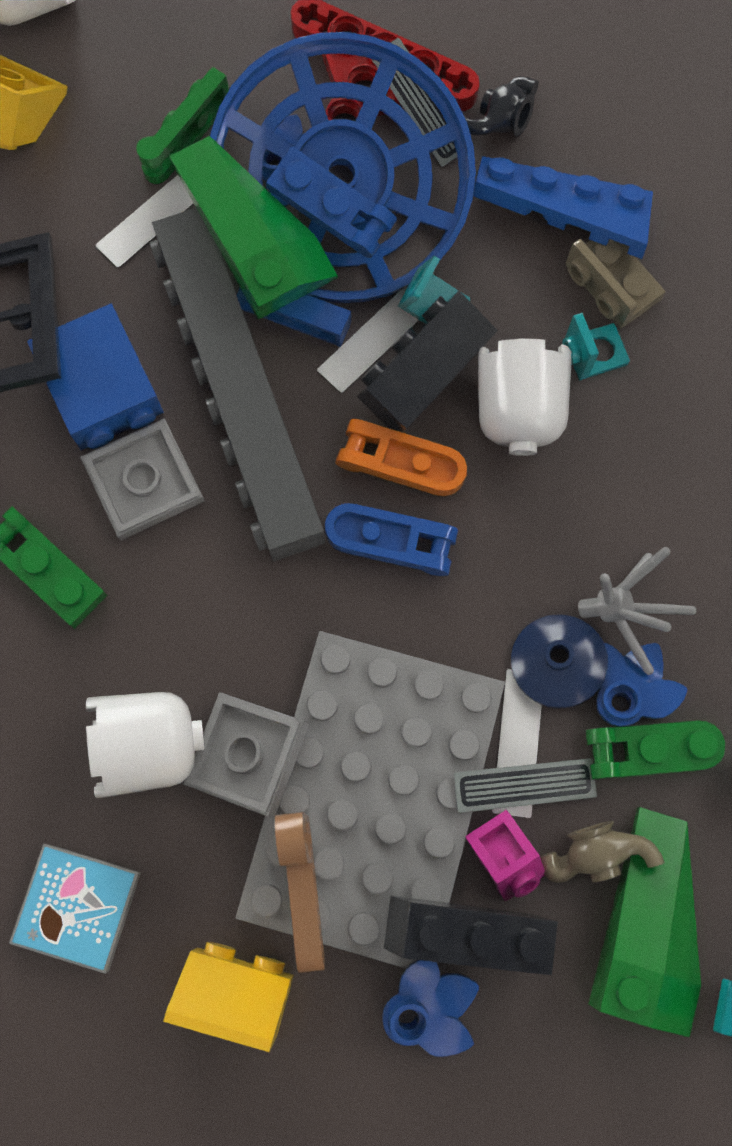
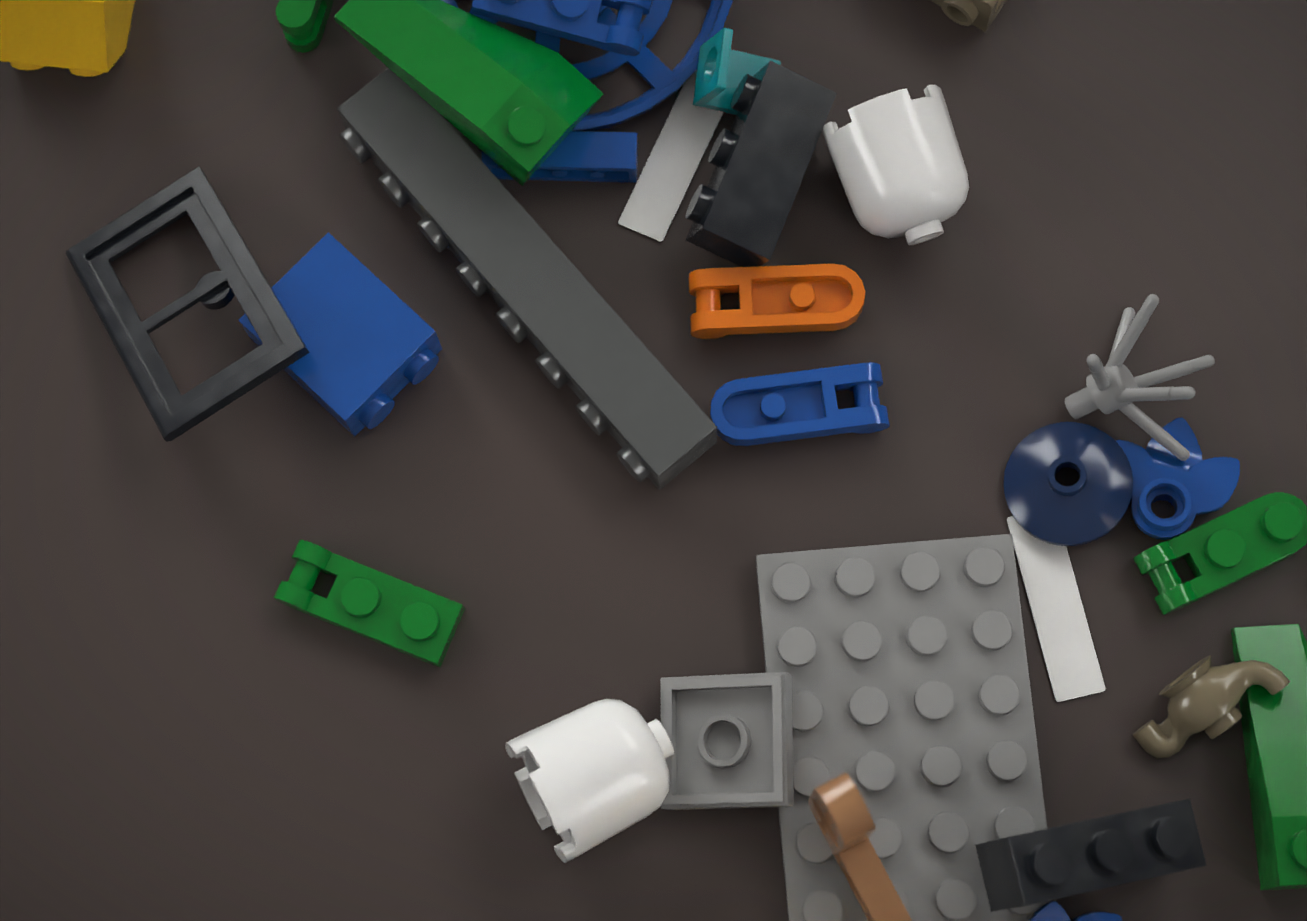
camera: 15 degrees left, 0 degrees up
(138, 227) = (316, 105): white sticker -> none
(142, 479) = (451, 444): light grey tile -> none
(507, 856) = (1096, 746): dark pink bracket -> none
(524, 785) = (1084, 652): sticker -> none
(584, 350) = (944, 69): teal bracket -> none

